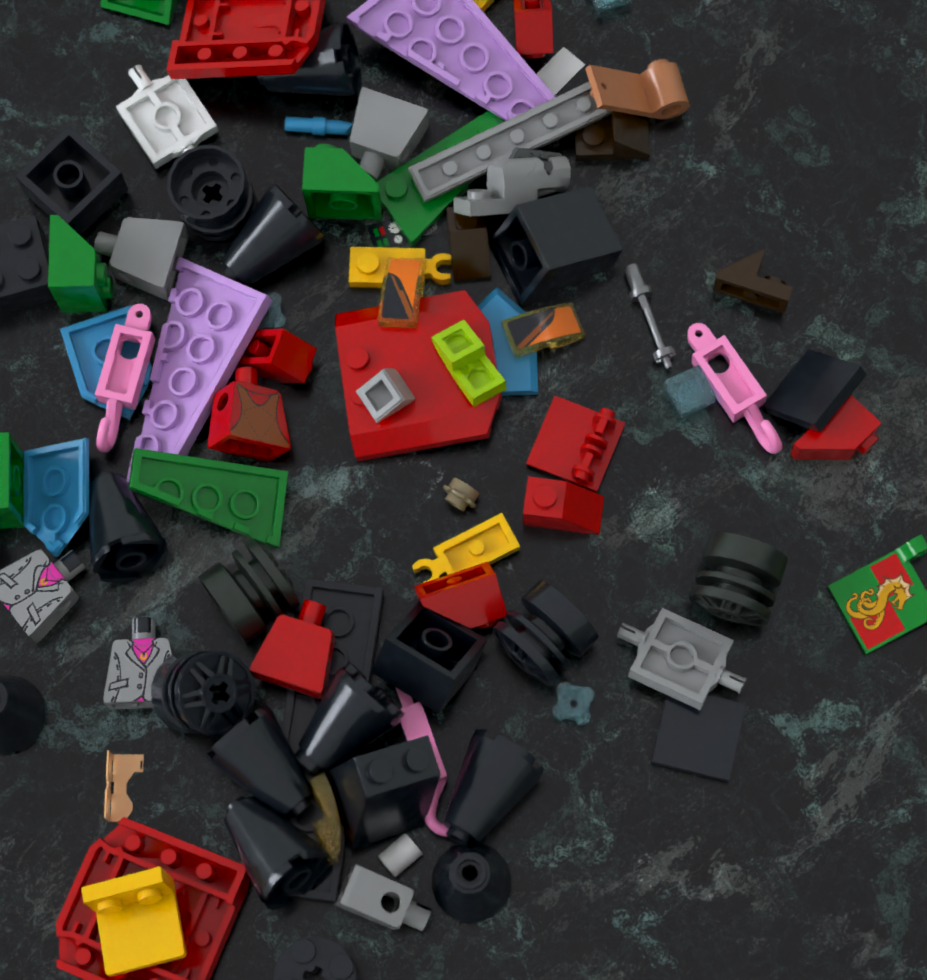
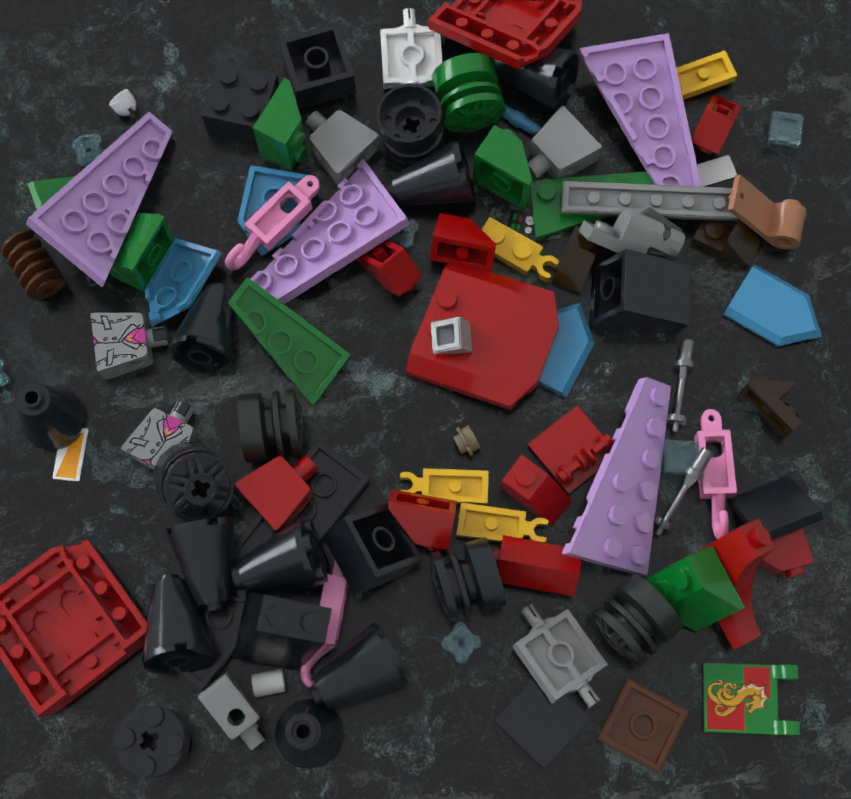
camera: 25 degrees right, 0 degrees up
(50, 747) = (70, 459): none -> sticker
(123, 768) = (110, 505): light nougat piece -> none
(137, 920) = (48, 623): yellow bracket -> none
(248, 419) = (343, 301): red torso -> none
(254, 125) = (468, 92): none -> green wheel
(327, 829) = (224, 635): clear yellow slope -> none
(338, 290) = (462, 243): none -> red slope
(401, 292) = (506, 268): slope -> none
(467, 363) = (525, 346): lime slope -> none
(543, 328) = (596, 351): slope -> none
(543, 562) = (494, 522): none -> yellow plate
(610, 579) = (537, 566): none -> red brick
(653, 458) = (624, 494): none -> lavender wing
(699, 186) = (773, 309): none -> dark azure tile
(712, 400) = (693, 473): none -> flat silver piece
(783, 513) = (698, 589): none -> green slope
(802, 486) = (740, 555): none -> red arch
(802, 682) = (642, 725): none -> reddish brown tile

